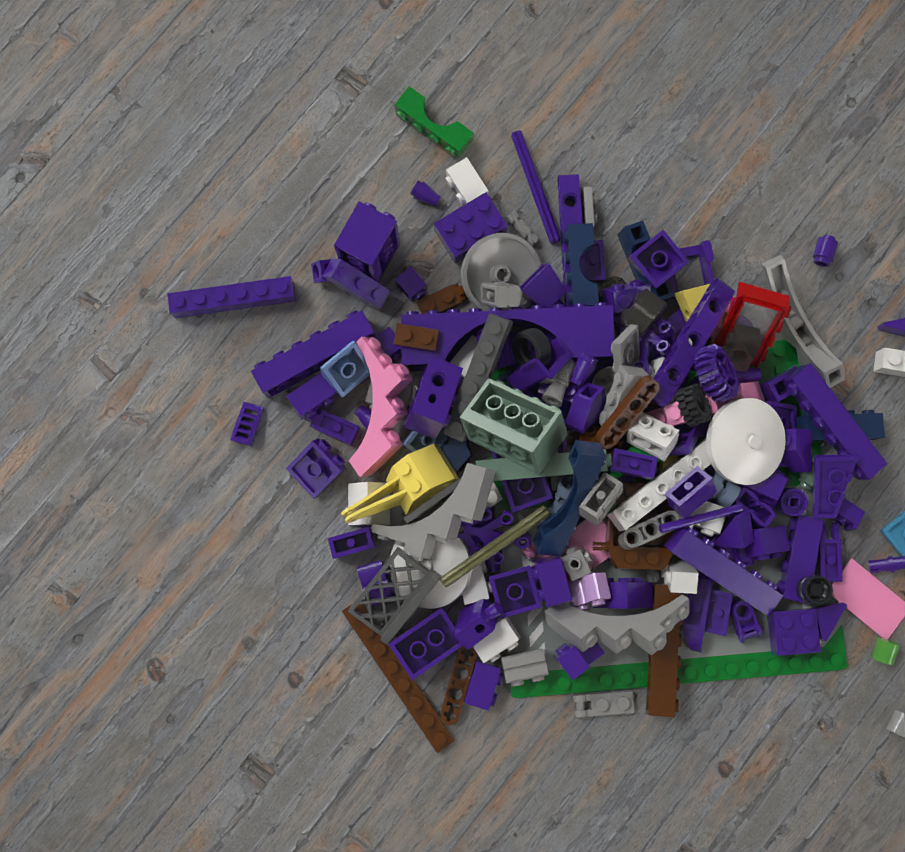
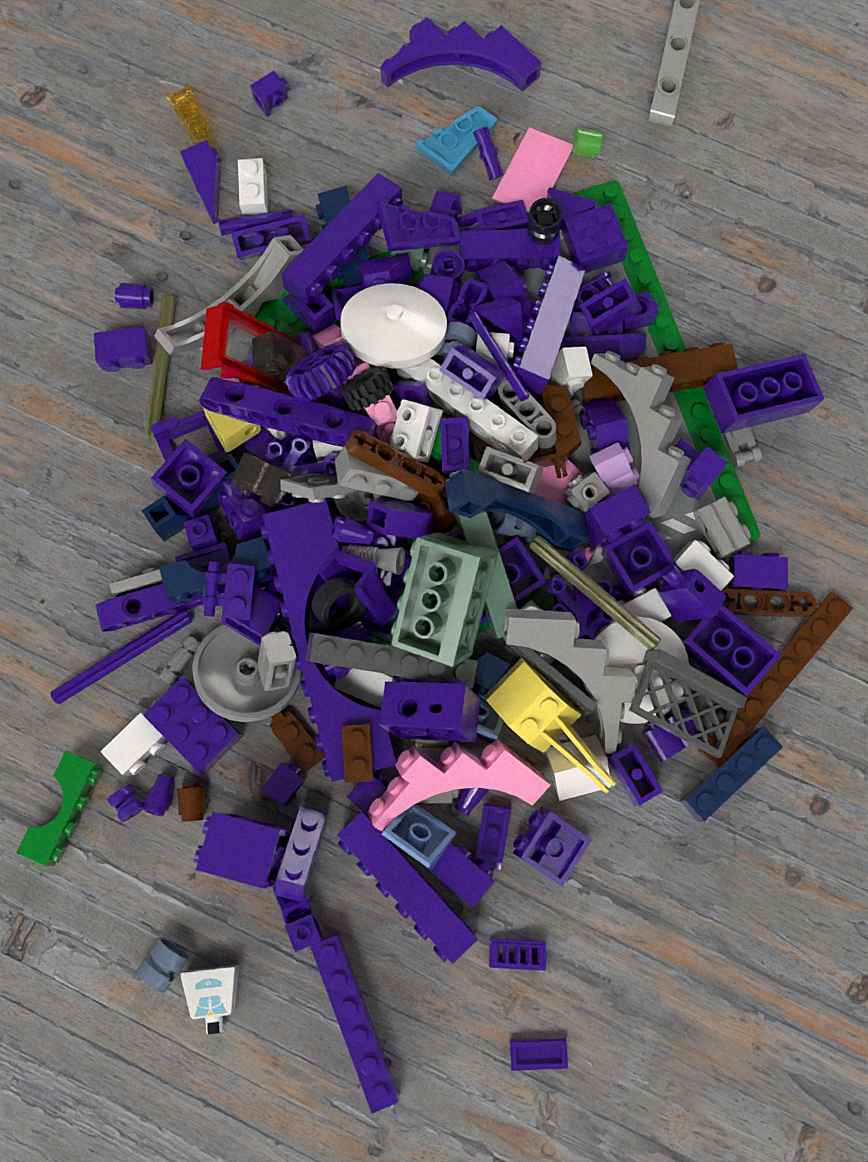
camera: 100 degrees left, 5 degrees down
(175, 421) = (538, 1054): none -> dark purple tile
(277, 202) = (211, 994): none -> white torso
(301, 275) = (304, 932): none -> dark purple brick
(308, 175) = (159, 969): none -> sand blue wheel
(333, 617) = (731, 775): none -> dark blue arch
(415, 215) = (191, 801): none -> reddish brown brick
(421, 171) = (125, 803): none -> dark purple wheel
(559, 277) = (238, 590): none -> dark purple plate
(616, 263) = (201, 532): none -> dark purple brick
(627, 732) = (763, 393): none -> dark purple brick
(727, 624) = (610, 306): none -> dark purple brick
(729, 643) = (642, 320): none -> dark purple brick
(758, 259) = (160, 368): none -> olive axle
(781, 233) = (122, 349): none -> dark purple brick
(851, 356) = (255, 240): none -> dark purple brick
(870, 356) = (243, 222): none -> dark purple pin

